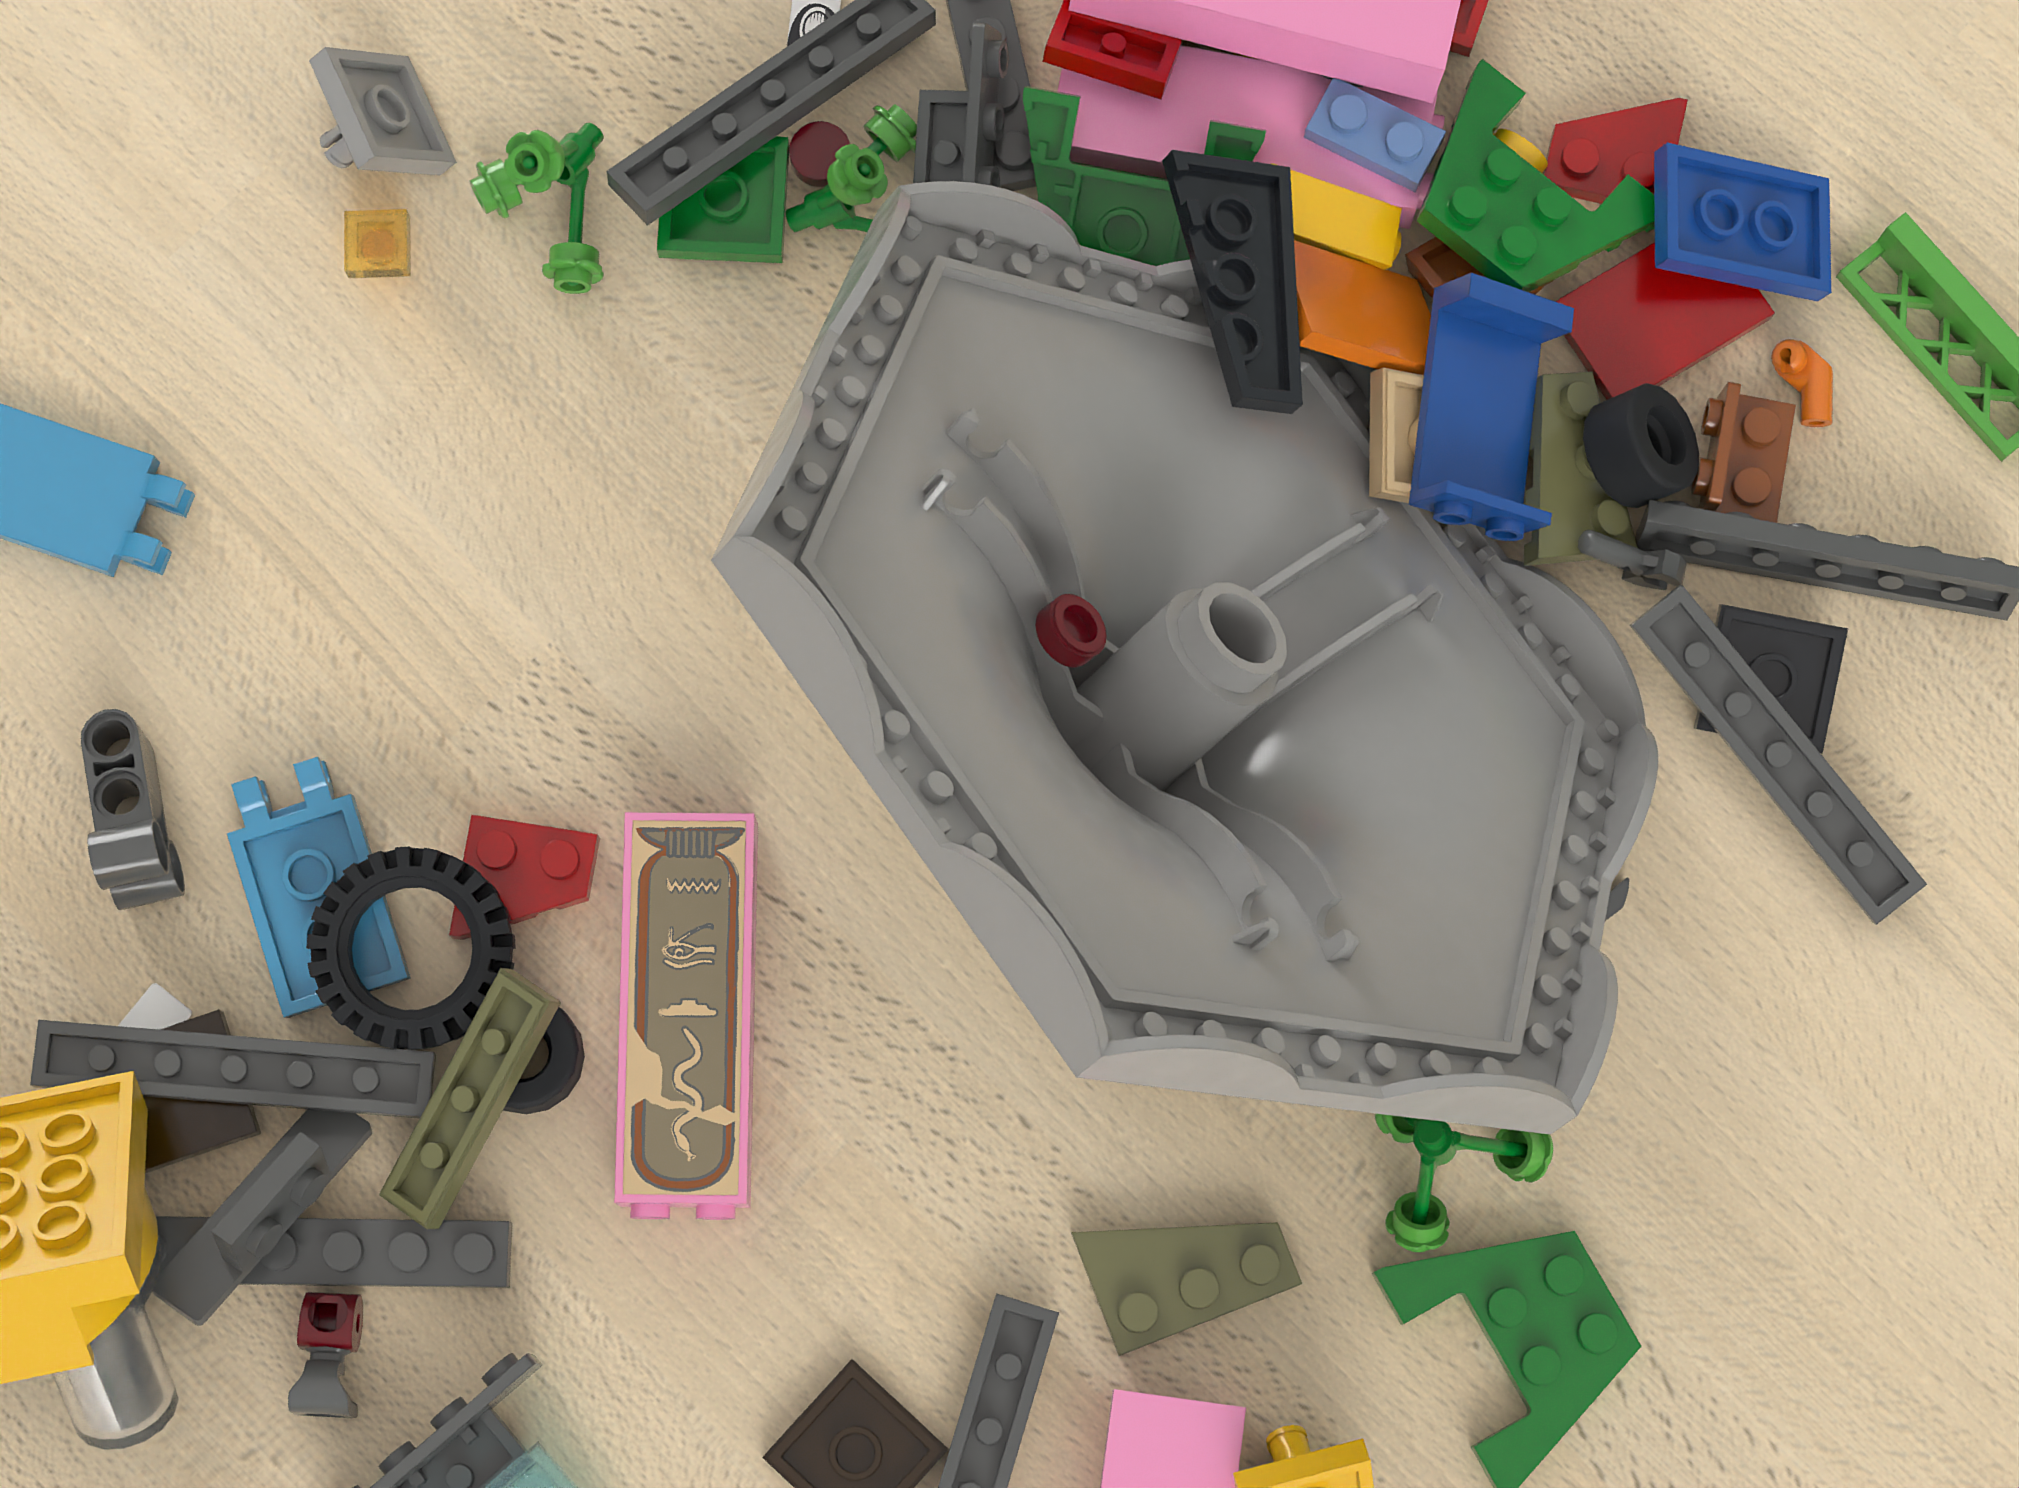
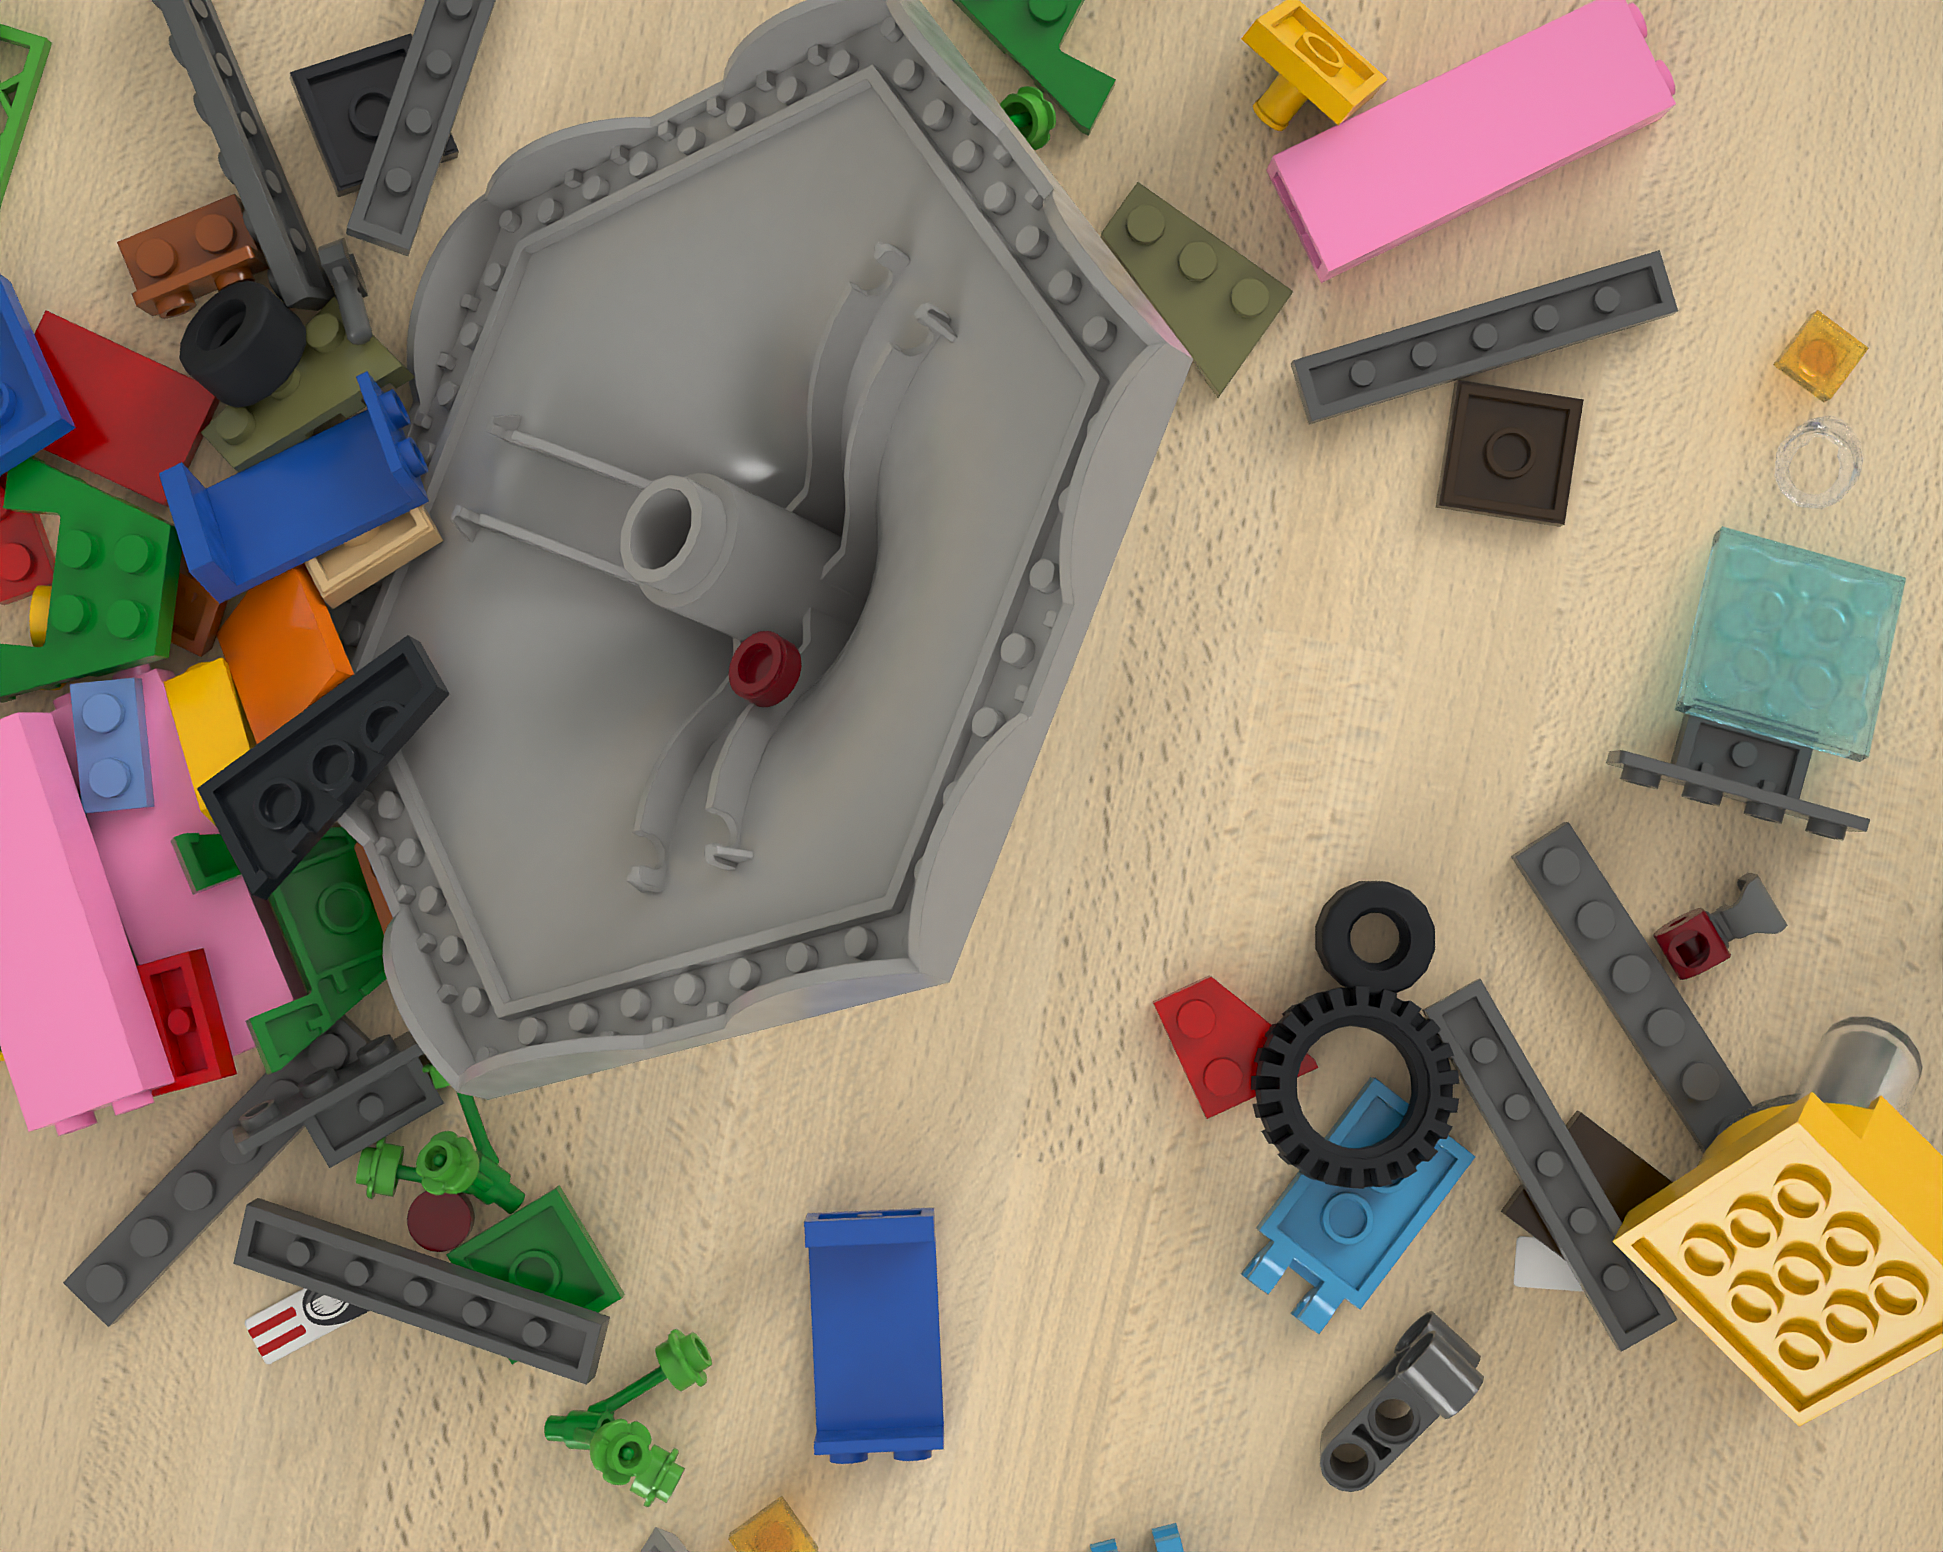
camera: 120 degrees left, 10 degrees up
(259, 1212) = (1649, 1061): dark grey bracket -> none
(469, 1098) = (1445, 951): olive tile -> none
(486, 434) = (875, 1334): none -> blue panel
(686, 1014) = (1254, 825): brick -> none
(1810, 377) = (83, 247): orange arm -> none

